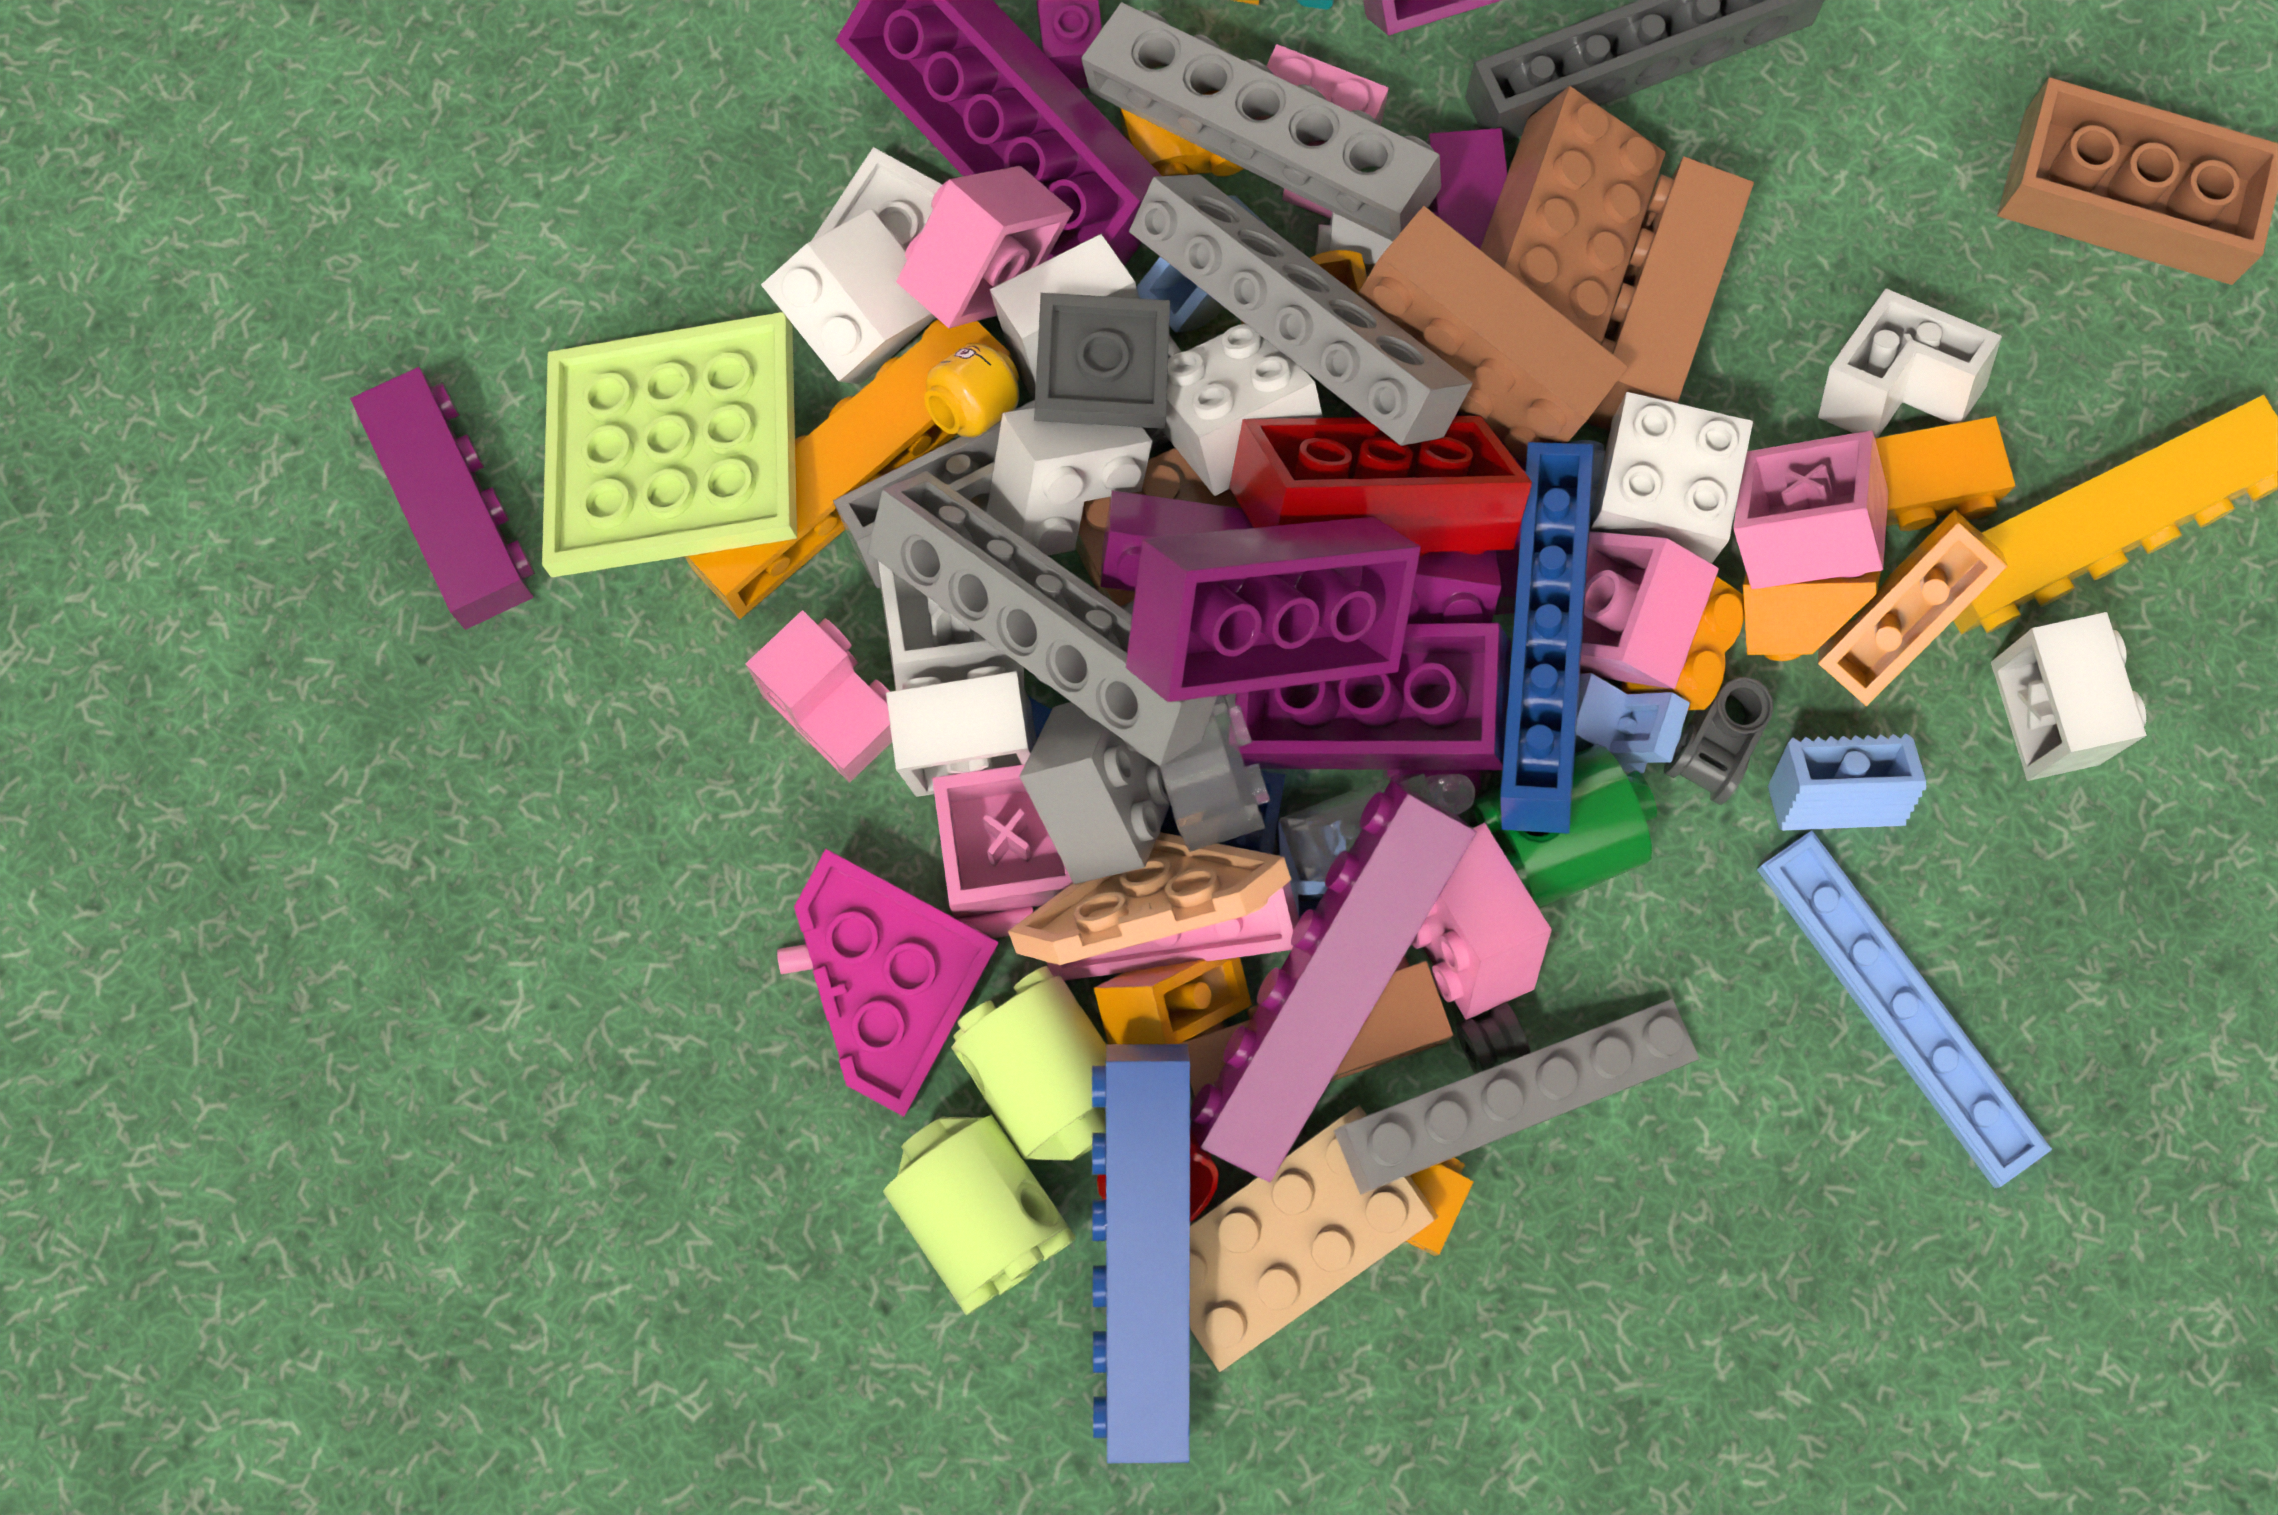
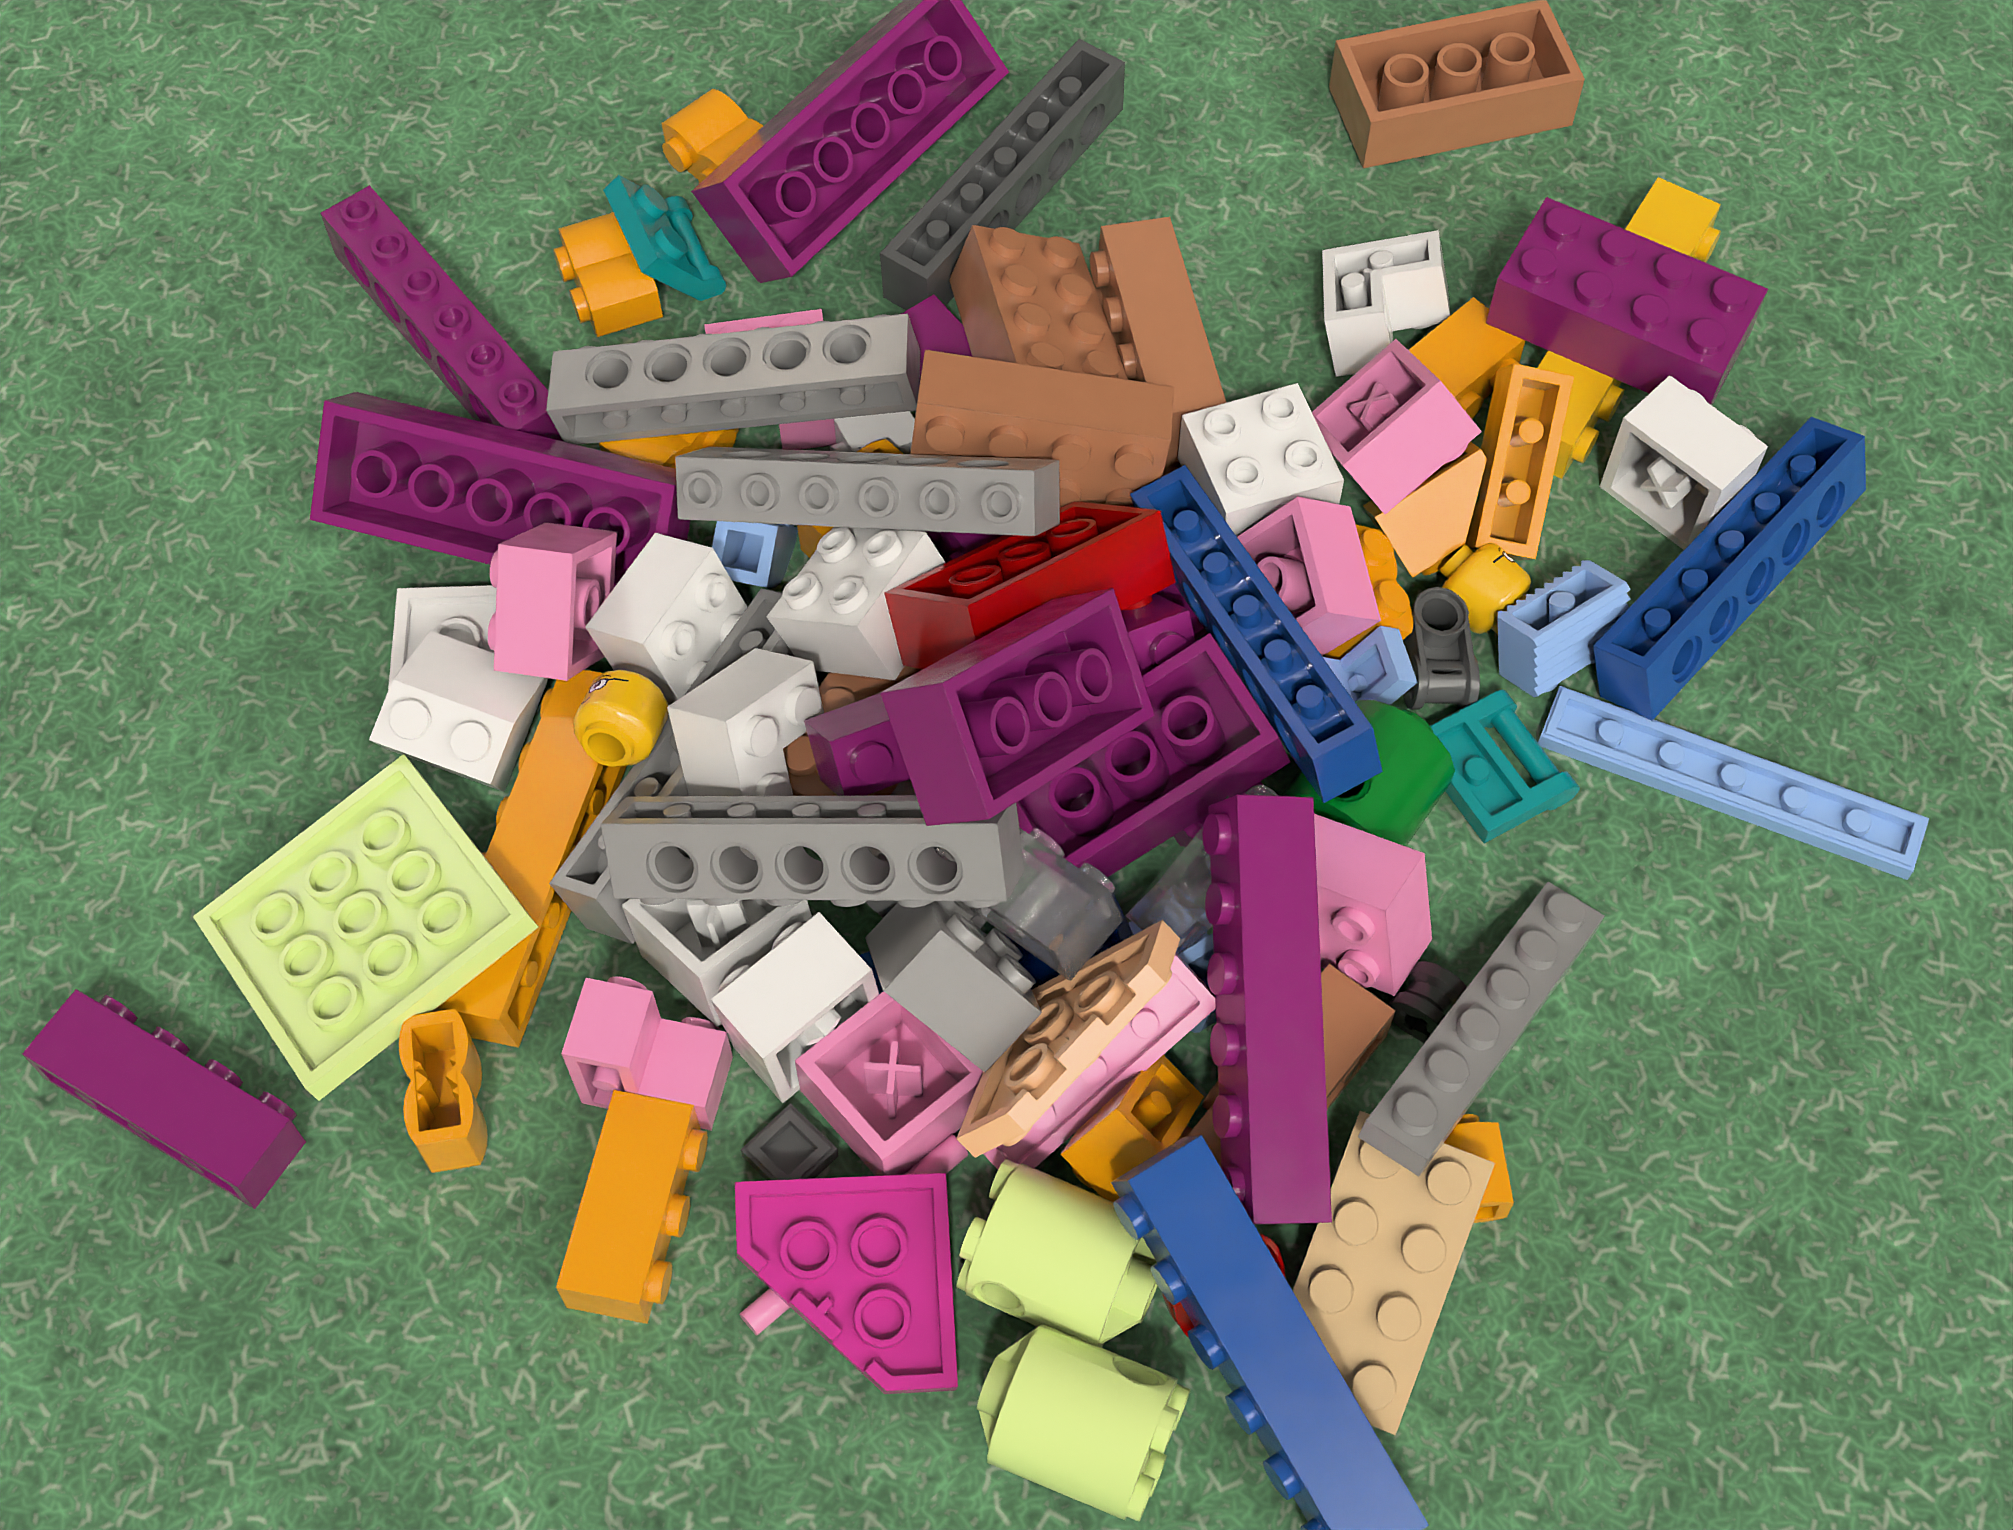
camera: 30 degrees left, 15 degrees down
(659, 614) = (443, 1091): none -> light orange brick
(745, 812) = (632, 1207): none -> light orange brick
(897, 840) = (789, 1148): none -> dark grey tile
(1102, 360) = (728, 617): dark grey plate -> none
(1681, 868) = (1484, 780): none -> teal plate
(1807, 701) = (1486, 583): none -> yellow head
(2046, 817) = (1730, 568): none -> blue brick
(2124, 513) = (1623, 303): none -> magenta brick

